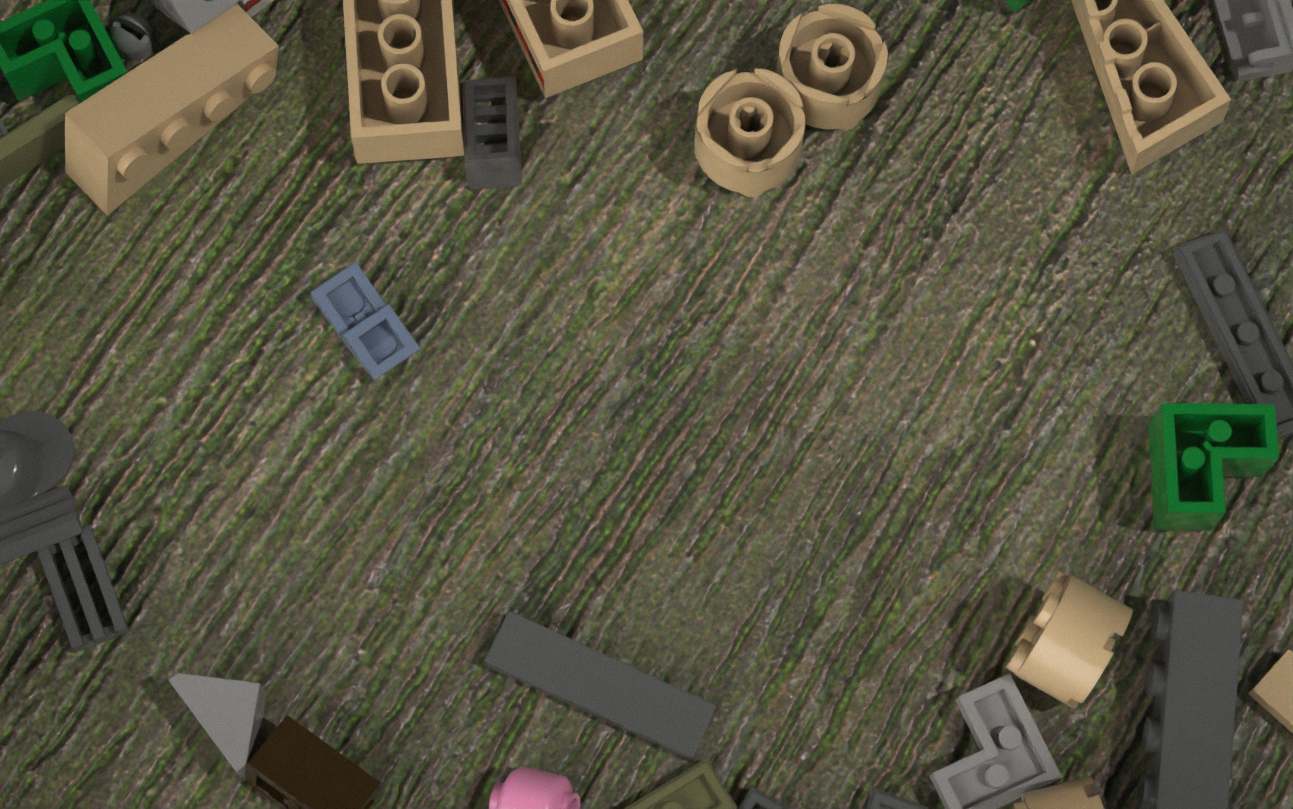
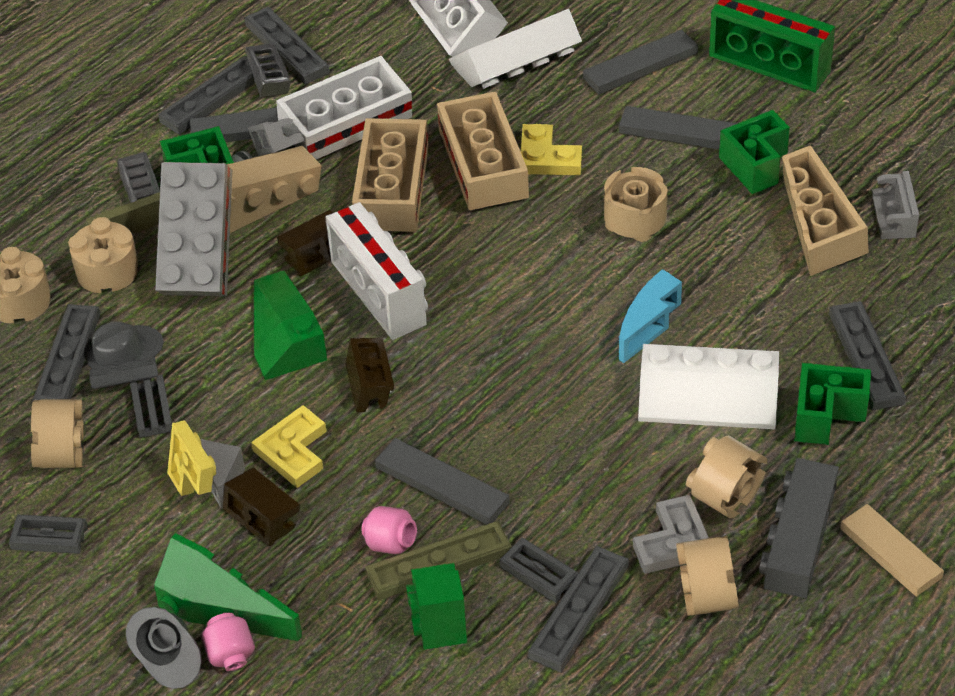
camera: 15 degrees right, 25 degrees down
(87, 236) = (194, 229): none -> light grey brick
(170, 722) = (188, 462): none -> light yellow plate
(275, 396) = (284, 328): none -> green wedge
(296, 204) = (307, 244): none -> dark brown hinge
(325, 650) = (286, 444): none -> light yellow plate
(364, 321) = (341, 299): sand blue slope -> none
(418, 270) = (377, 270): none -> white brick
(442, 483) = (368, 372): none -> dark brown hinge
(491, 164) = (434, 228): flat silver slope -> none
(724, 134) = (582, 227): tan brick -> none
(886, 299) = (649, 313): none -> medium azure slope
(1007, 445) = (708, 386): none -> white slope

